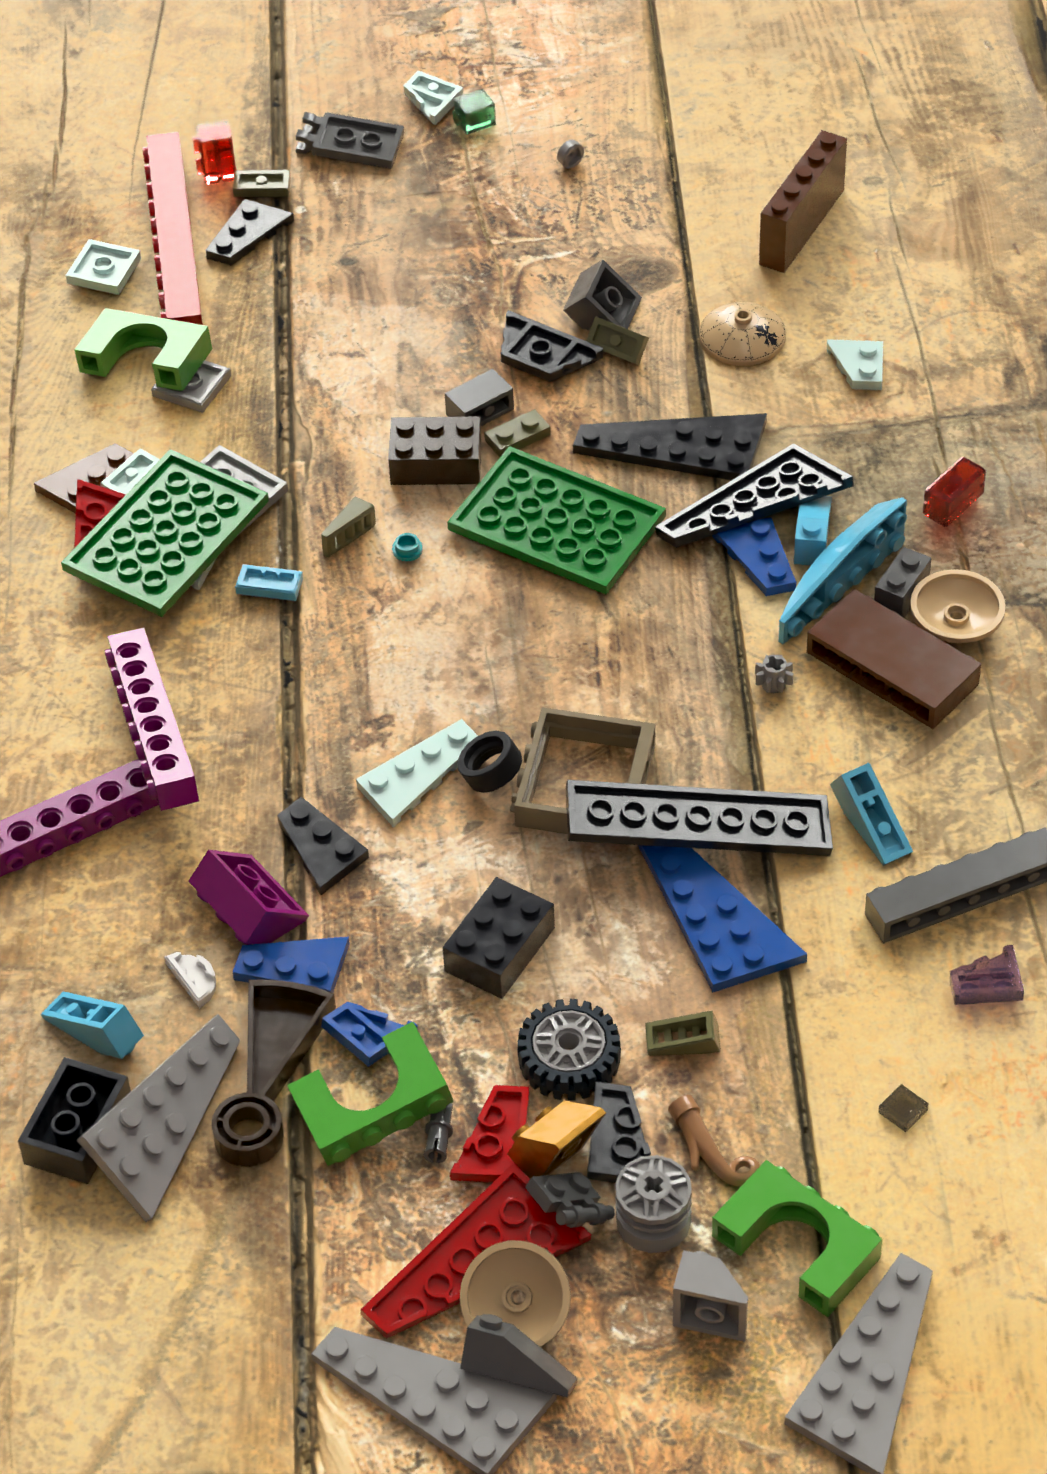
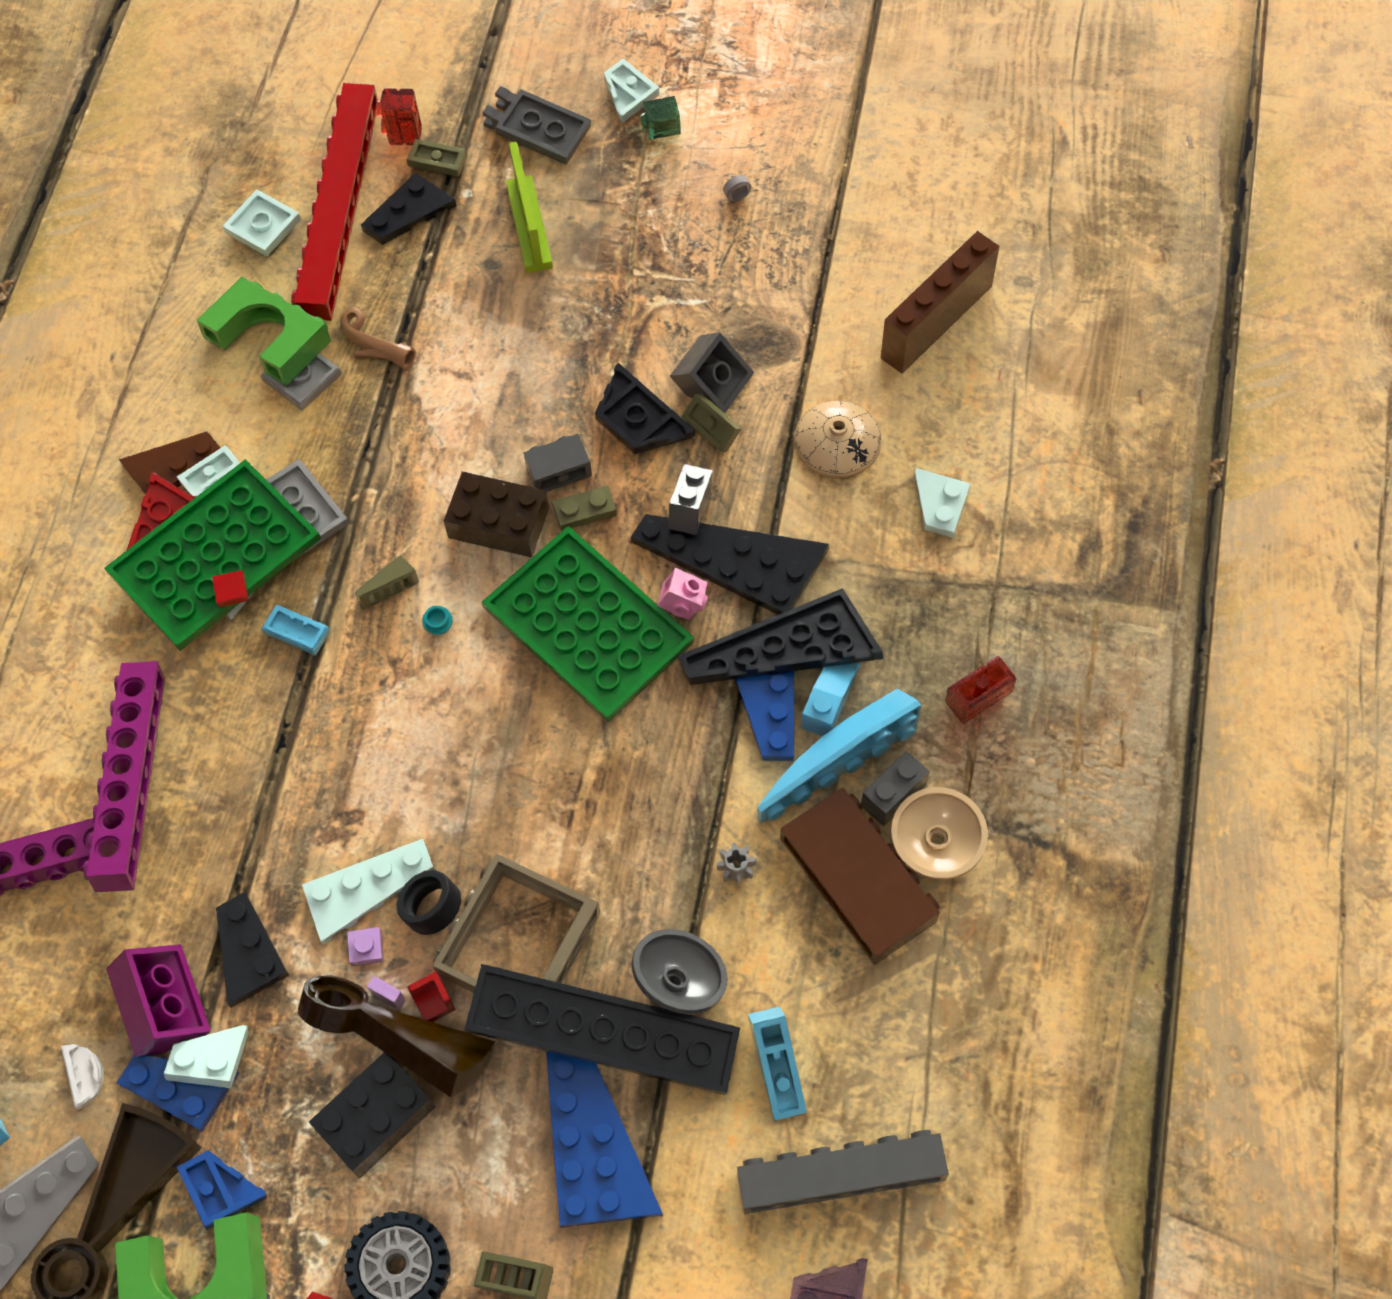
camera: 15 degrees right, 15 degrees up
(198, 550) = (230, 588): none -> red tile
(256, 345) = (399, 354): none -> medium nougat plant
(317, 931) = (208, 1058): none -> light aqua wing
(371, 206) = (527, 217): none -> lime fence
(437, 816) = (365, 946): none -> lavender plate
(474, 843) = (386, 993): none -> lavender tile
(514, 864) = (434, 1052): none -> dark brown piece
(520, 836) = (431, 997): none -> red panel
(621, 399) = (690, 499): none -> dark grey brick
(643, 475) = (683, 594): none -> bright pink brick
(753, 762) = (679, 971): none -> dark grey dish

